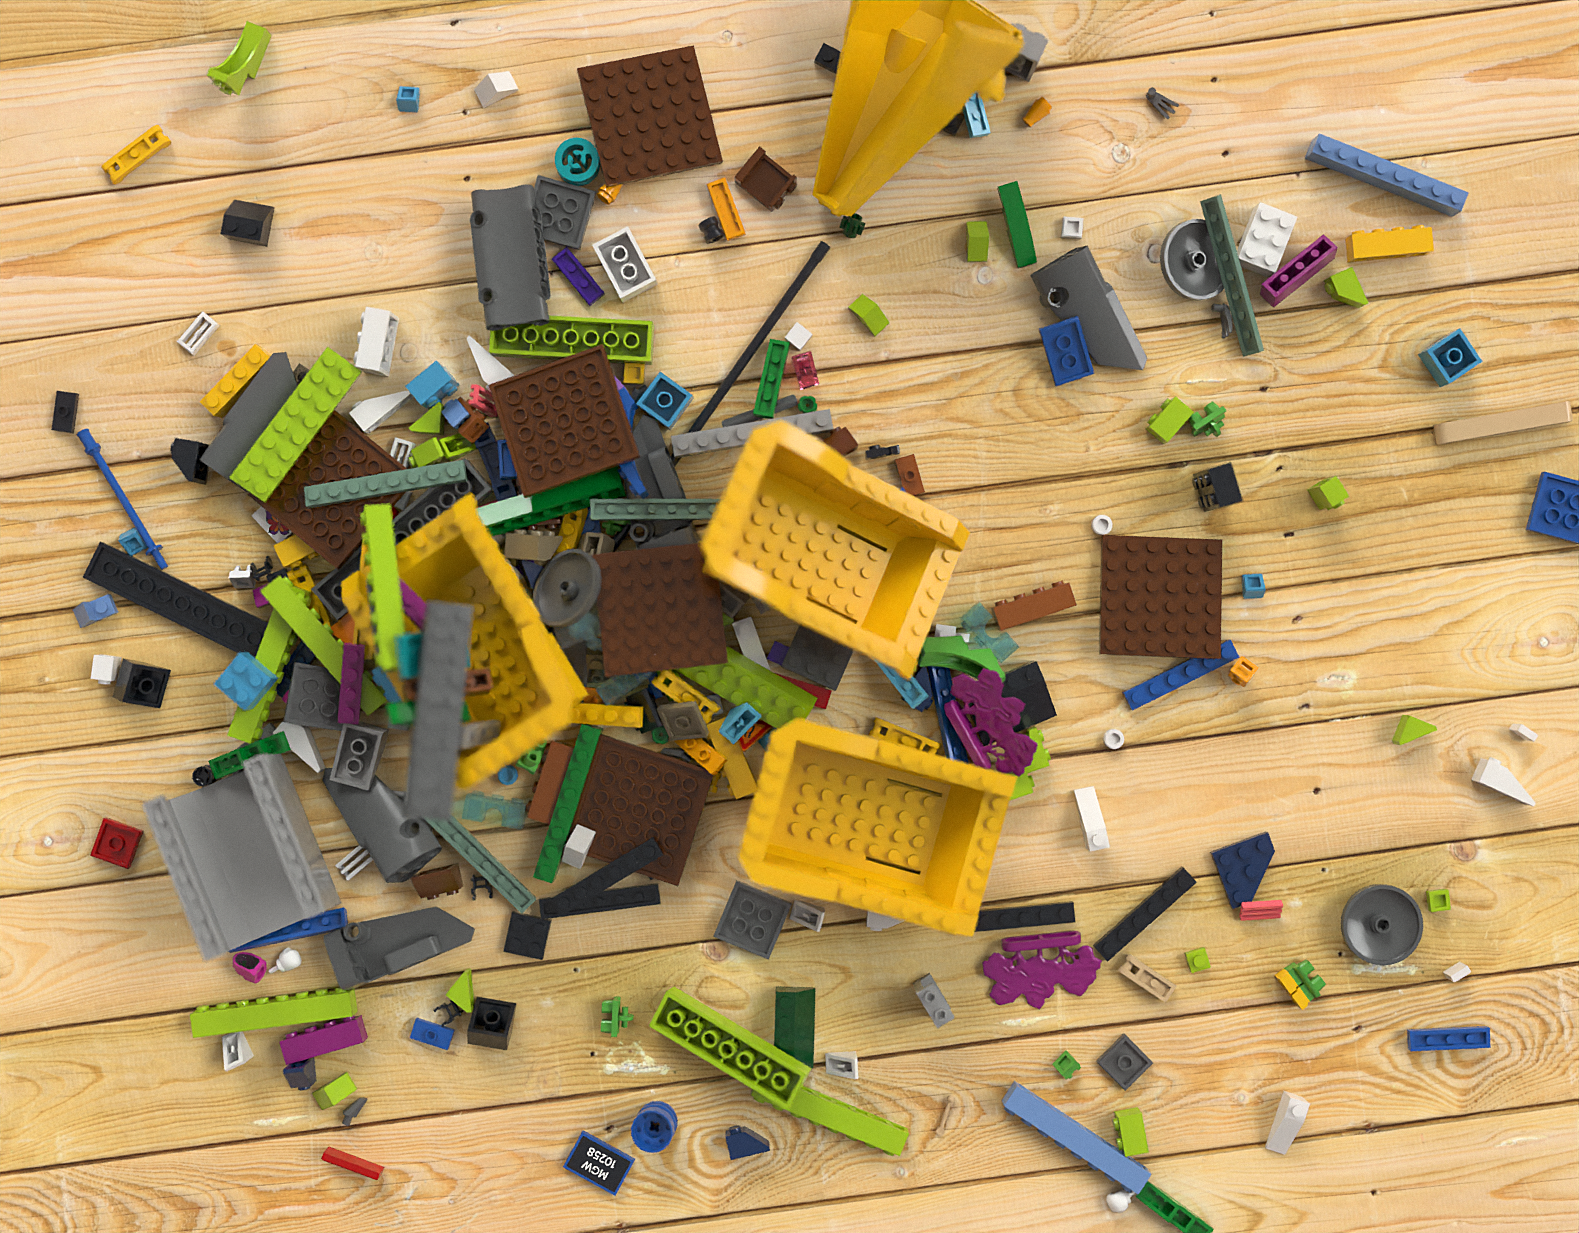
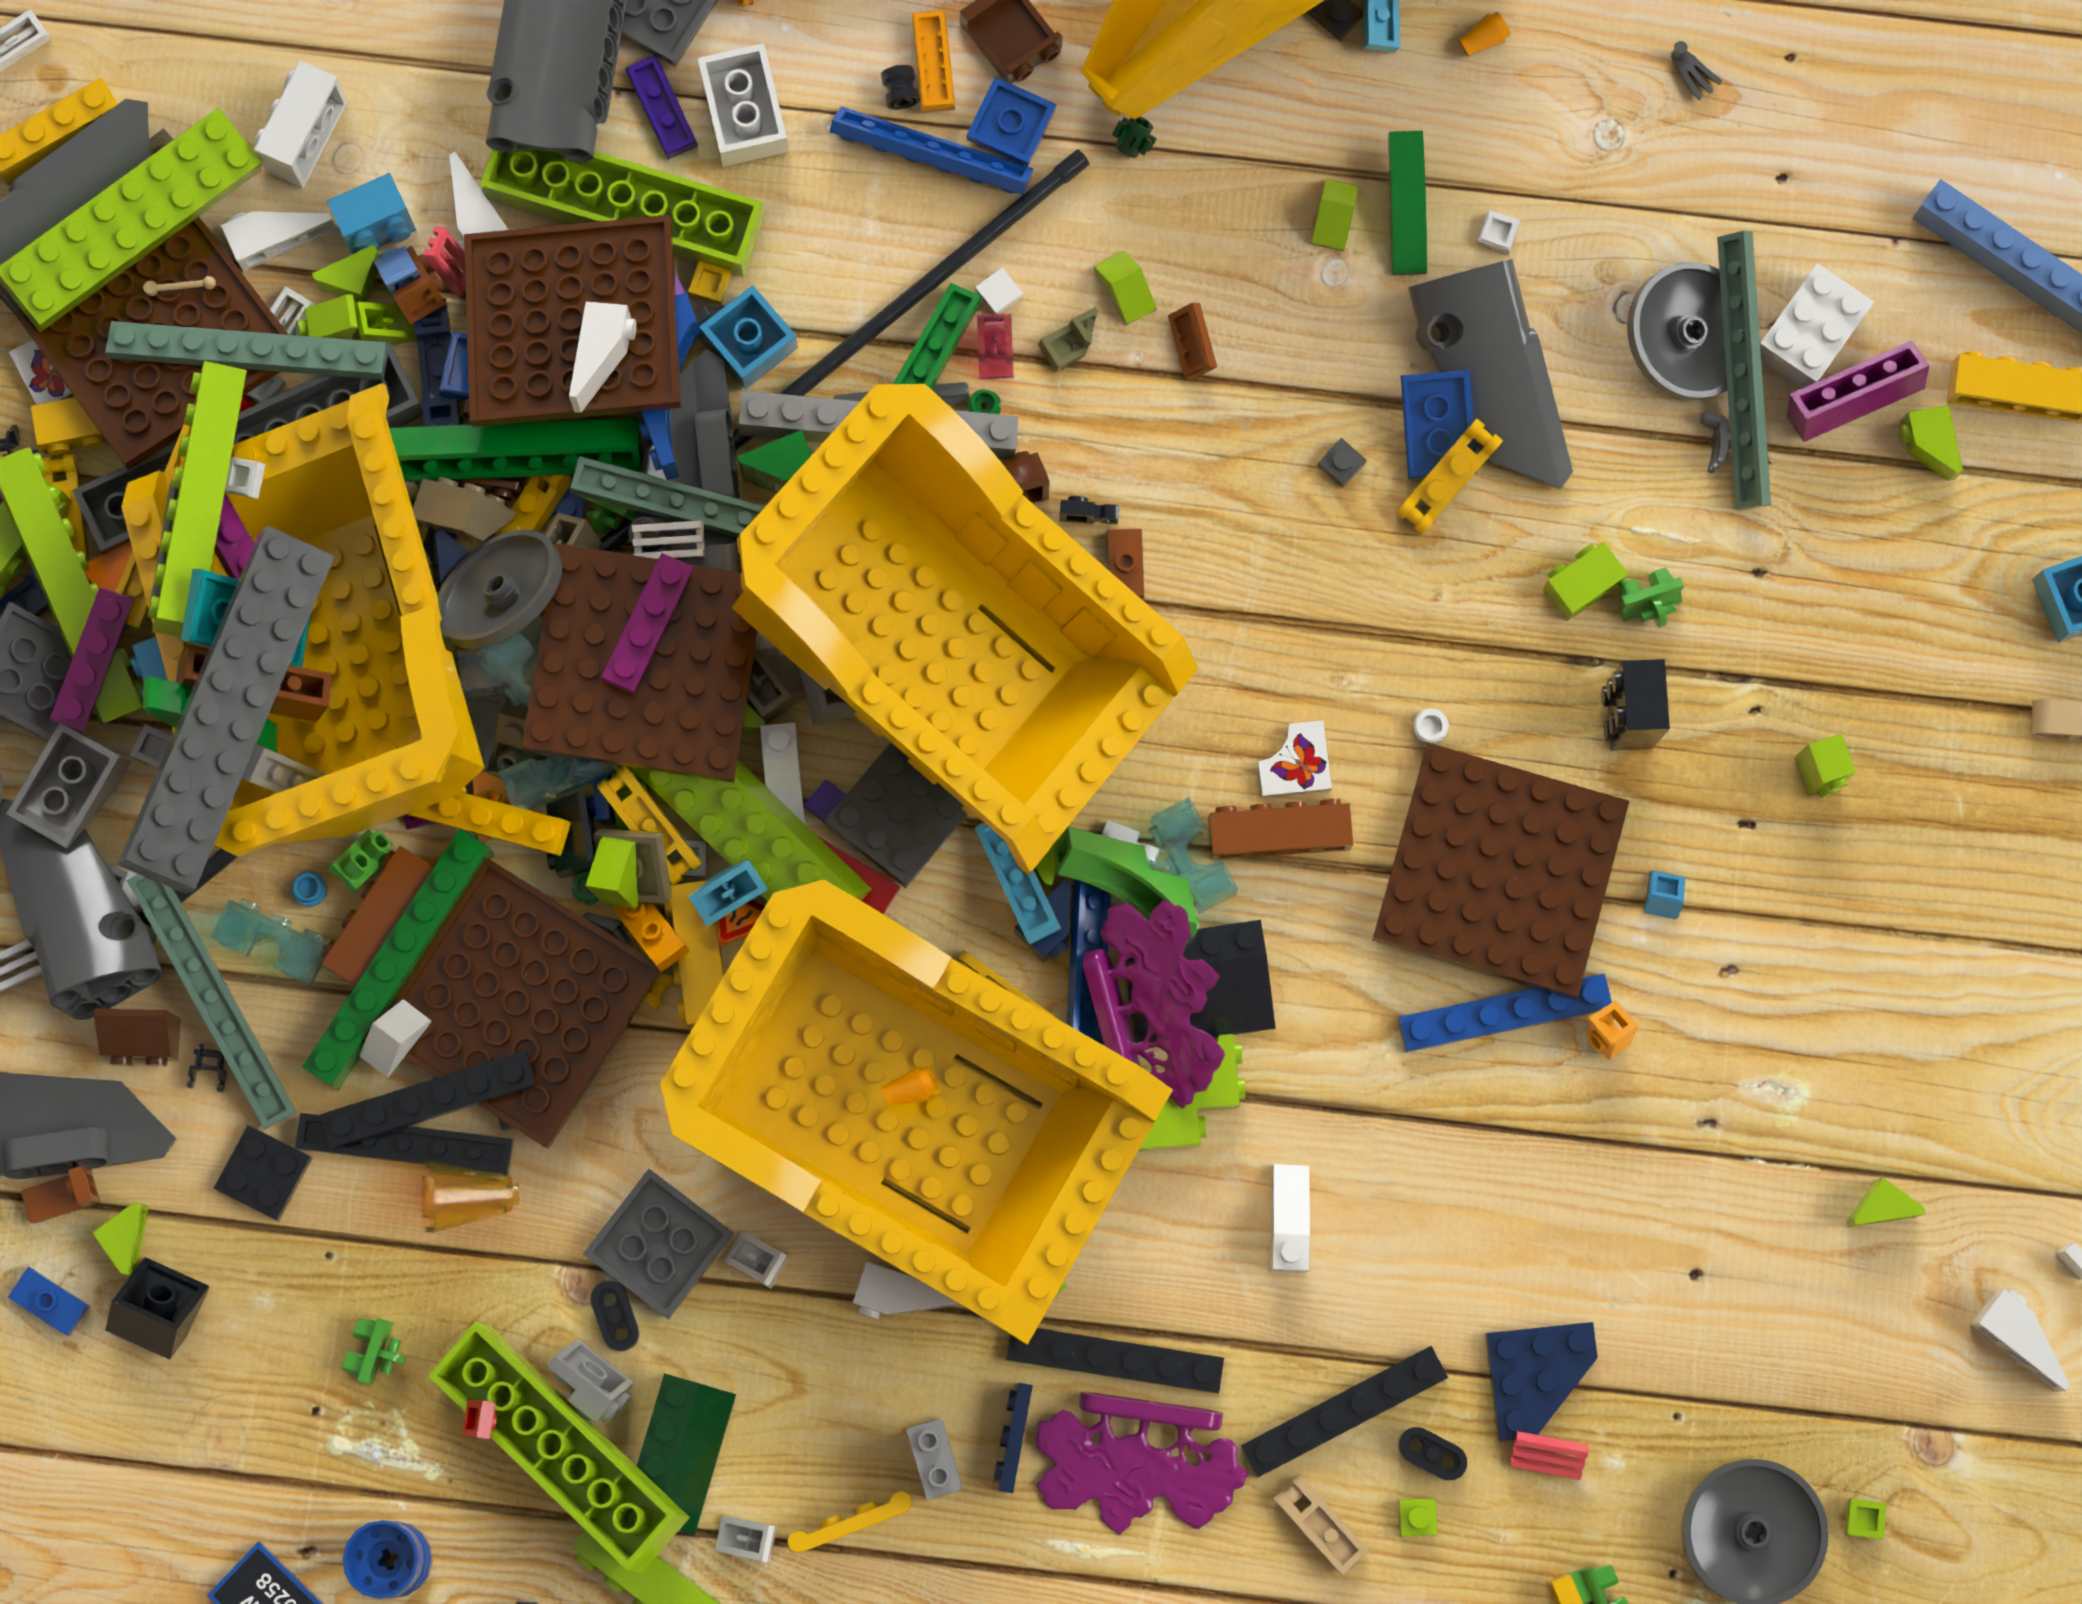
camera: 10 degrees right, 10 degrees down
(321, 460) = (152, 288): none -> tan hinge
(407, 566) = (244, 477): none -> white tile
(422, 976) = (61, 1195): none -> dark orange bracket
(445, 1006) = (105, 1275): black piece -> none
(586, 434) = (600, 348): none -> white slope
(637, 540) = (638, 542): none -> white tile
(640, 922) = (464, 1195): none -> clear yellow cone
(656, 588) = (647, 623): none -> magenta plate
(674, 728) = (614, 873): none -> lime slope
(684, 1046) = (479, 1419): none -> red plate
(705, 471) = (775, 462): none -> green slope
(738, 263) = (931, 150): none -> blue plate
(738, 964) = (615, 1316): none -> black plate
(738, 1004) = (597, 1383): none -> light grey plate
(779, 234) = (1011, 121): none -> blue plate
(846, 355) = (1069, 342): none -> olive slope
(874, 810) = (912, 1087): none -> light orange cone
(890, 1046) = (836, 1528): none -> yellow plate
(915, 337) = (1192, 341): none -> dark orange plate
(970, 975) = (1012, 1437): none -> dark blue plate
(1016, 386) = (1342, 462): none -> dark grey plate
(1034, 564) = (1299, 765): none -> white tile
(1079, 380) = (1449, 476): none -> yellow plate
(1113, 738) = (1363, 1093): white tile -> none
(1197, 924) = (1432, 1452): none -> black plate

